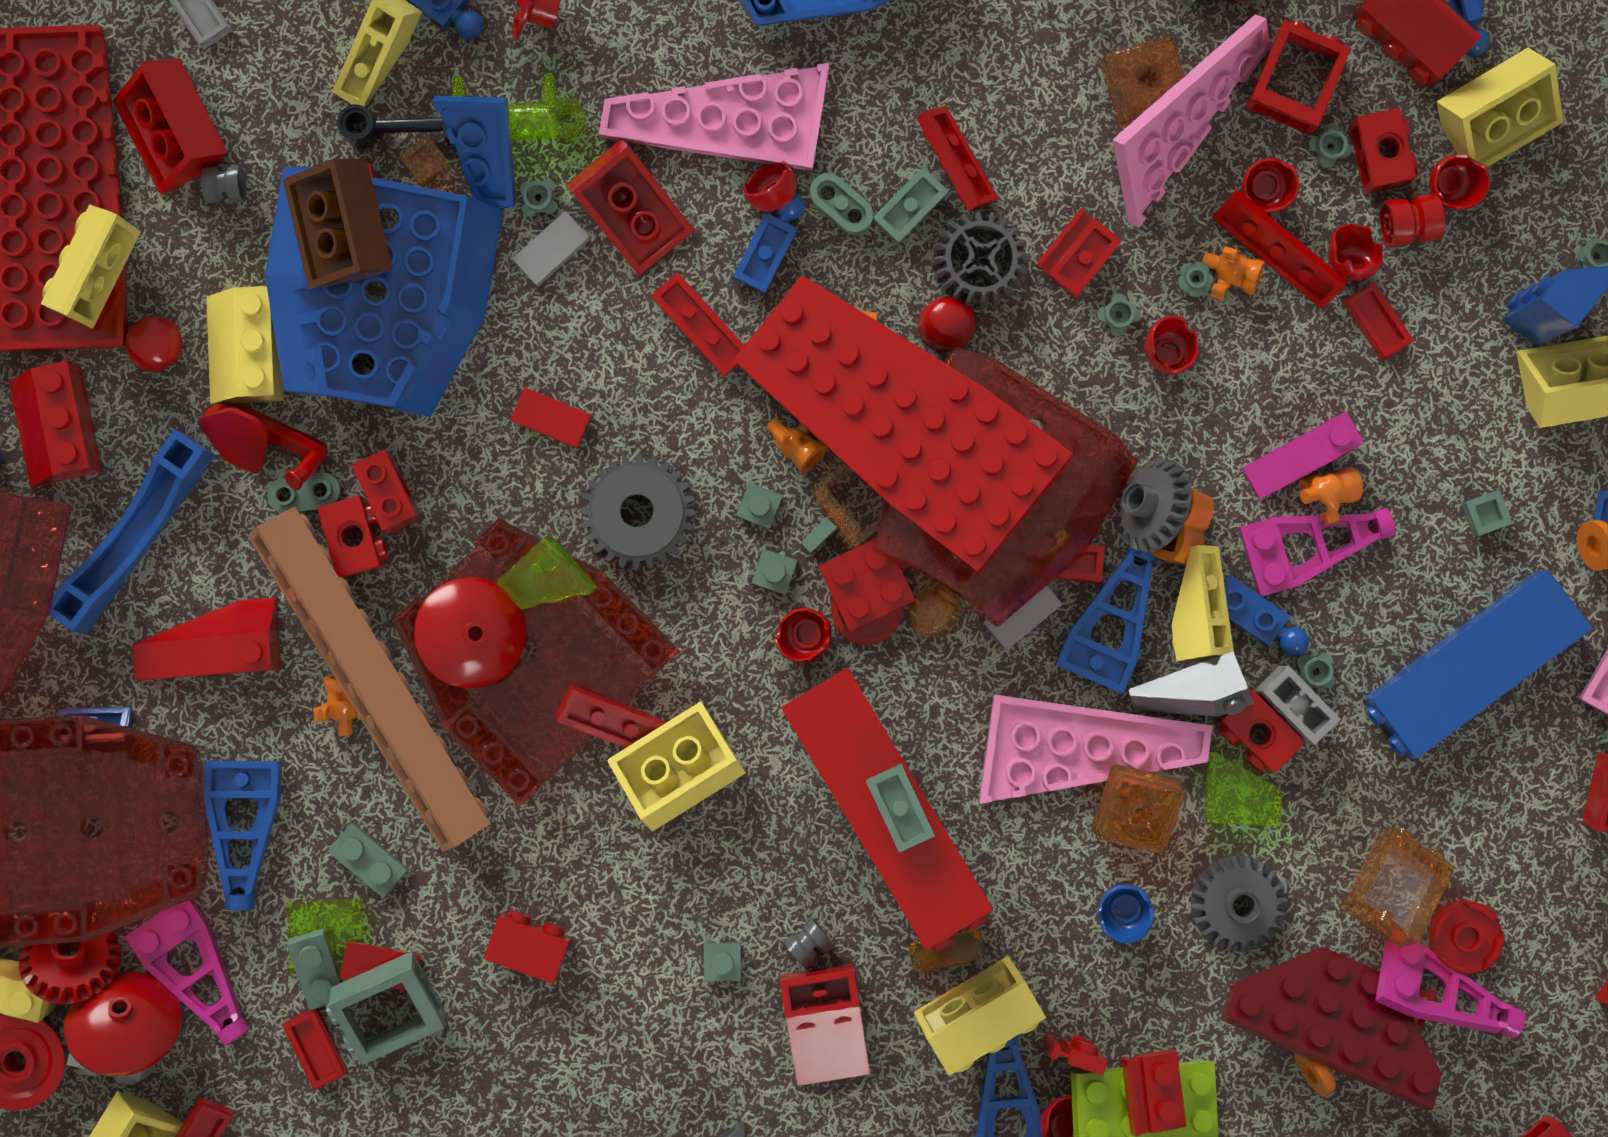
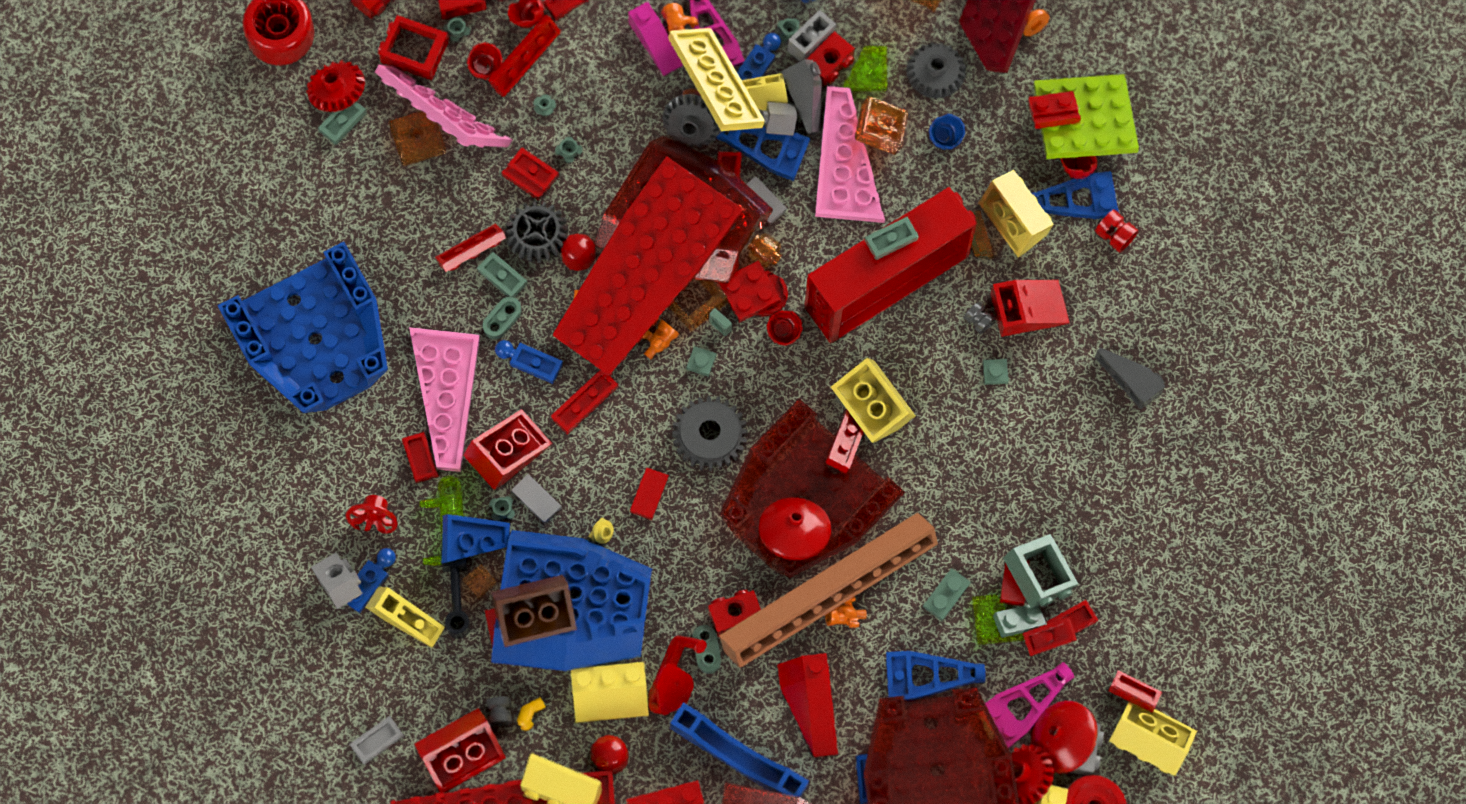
camera: 90 degrees left, 15 degrees down
(220, 224) = (527, 711): none -> yellow arm
(284, 1014) = (1049, 636): none -> red plate
(387, 491) = (701, 591): red brick -> none
(494, 344) = (602, 531): none -> light yellow plate
(528, 946) = (995, 488): red brick -> none
(545, 576) = (756, 481): clear neon green wing -> none
(625, 77) = (420, 457): none -> red tile
(771, 187) = (489, 362): red hair -> none
(774, 571) = (744, 350): sand green plate -> none
(1076, 1052) = (1032, 155): red plate -> none
(1156, 646) = (780, 118): none -> light grey brick
(1175, 332) = (591, 109): red hair -> none
(1215, 544) = (716, 79): none -> light yellow plate
(1234, 270) = (538, 81): orange piece -> none

